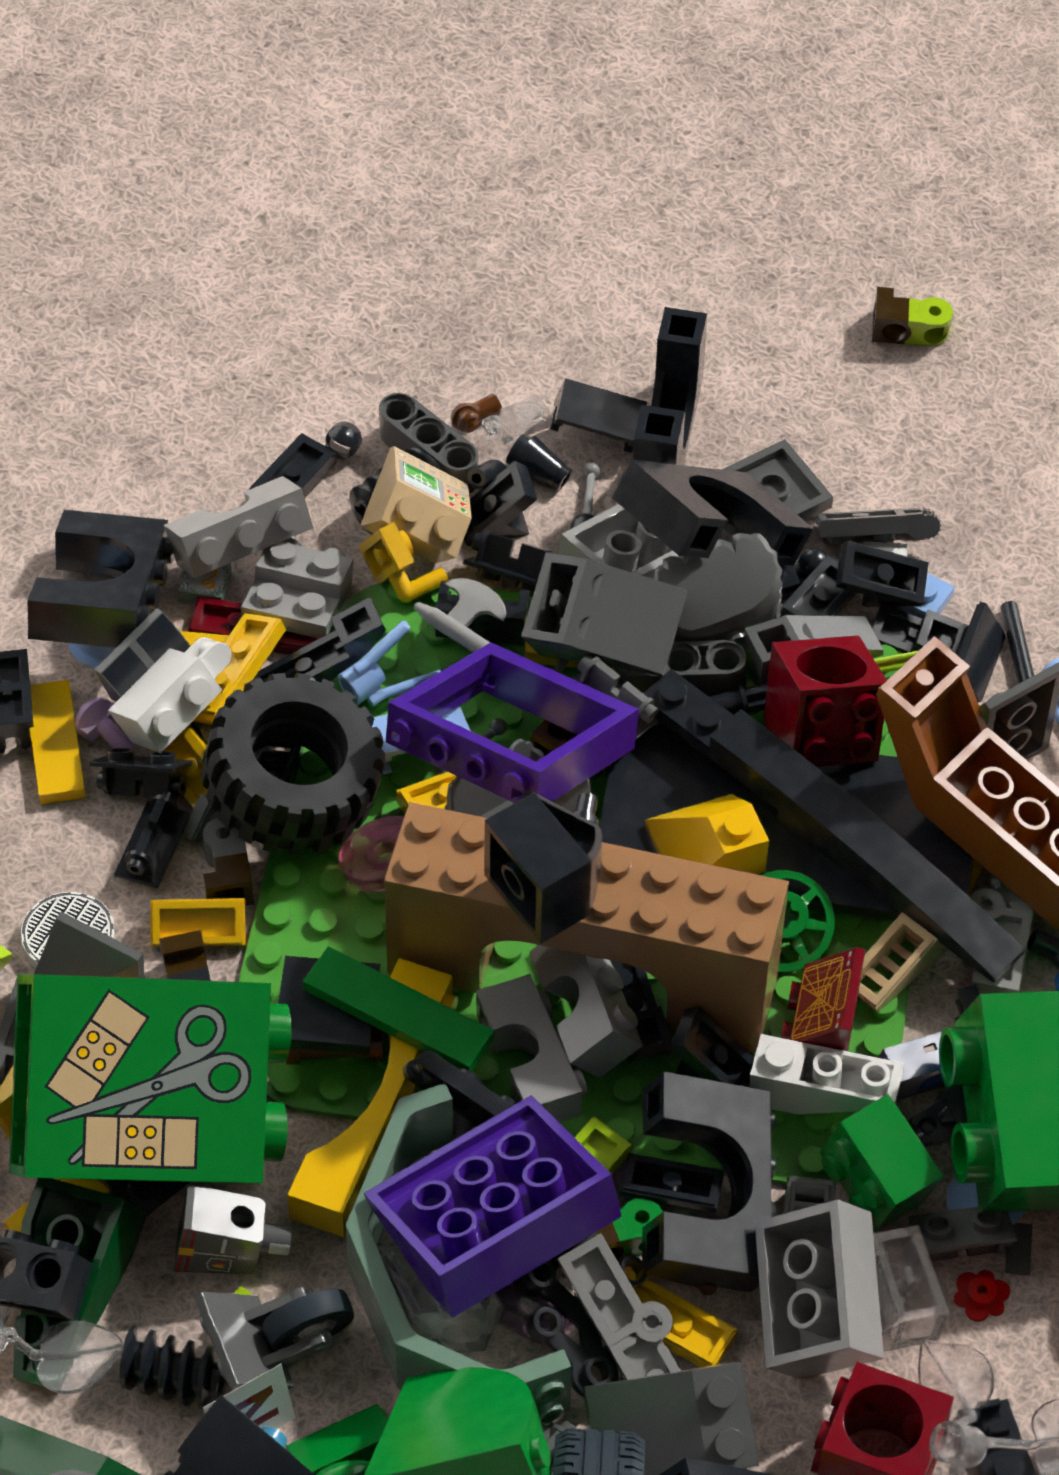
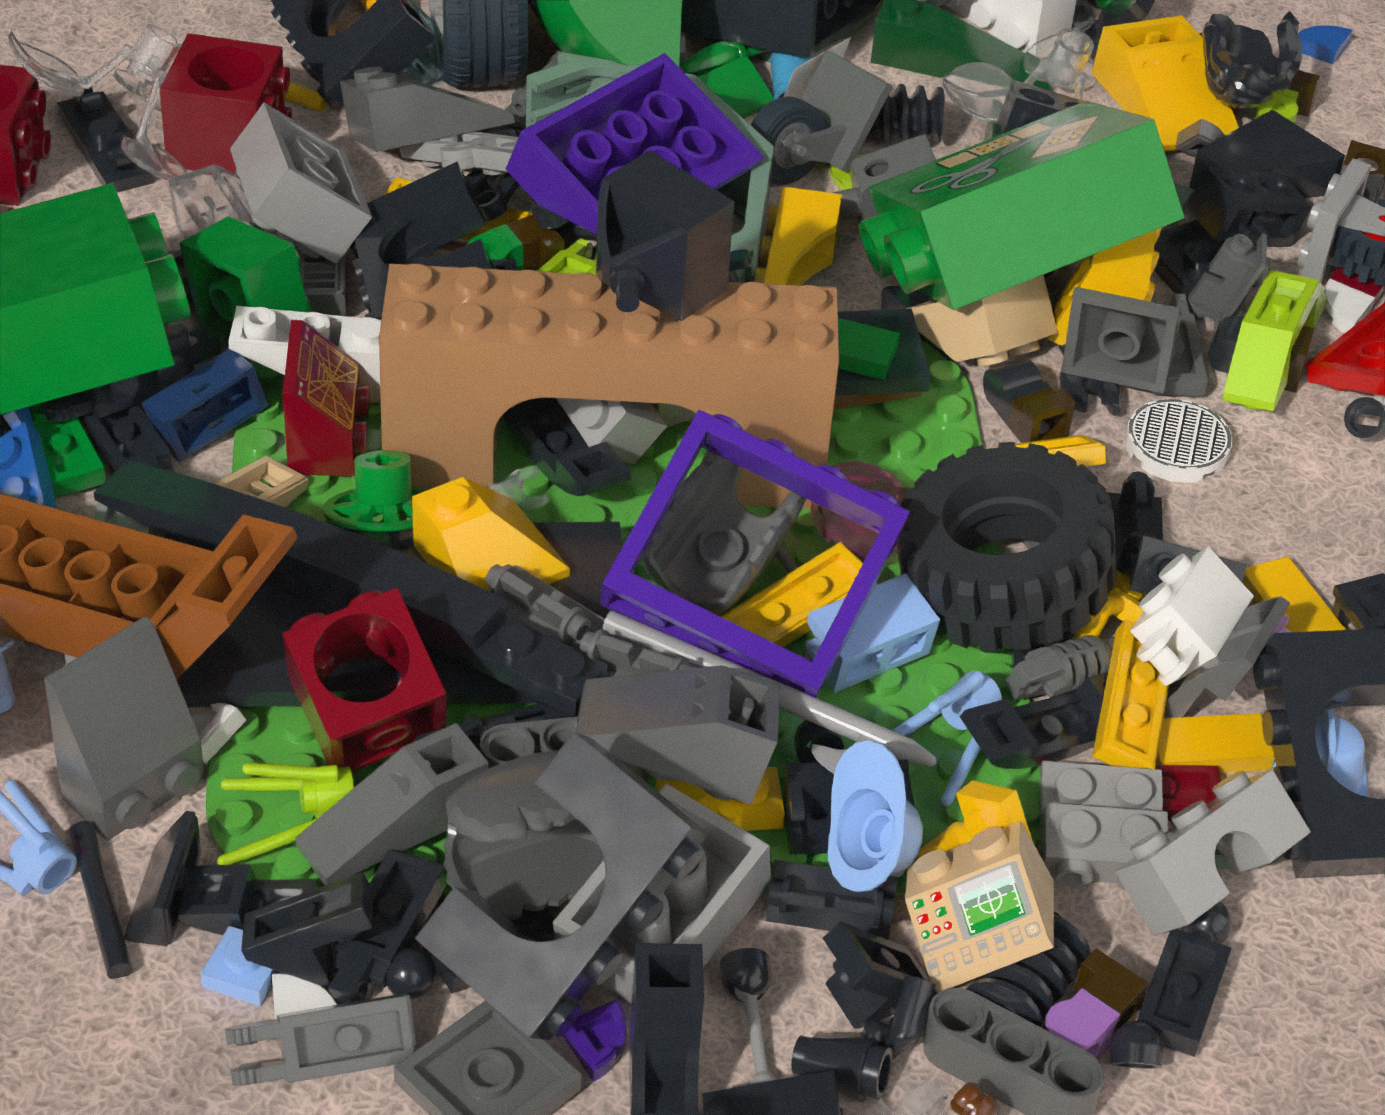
camera: 165 degrees right, 10 degrees down
(357, 462) = (1102, 1002): none -> leg
(476, 557) = (872, 823): none -> light blue piece
(681, 773) = (541, 605): none -> dark grey hinge

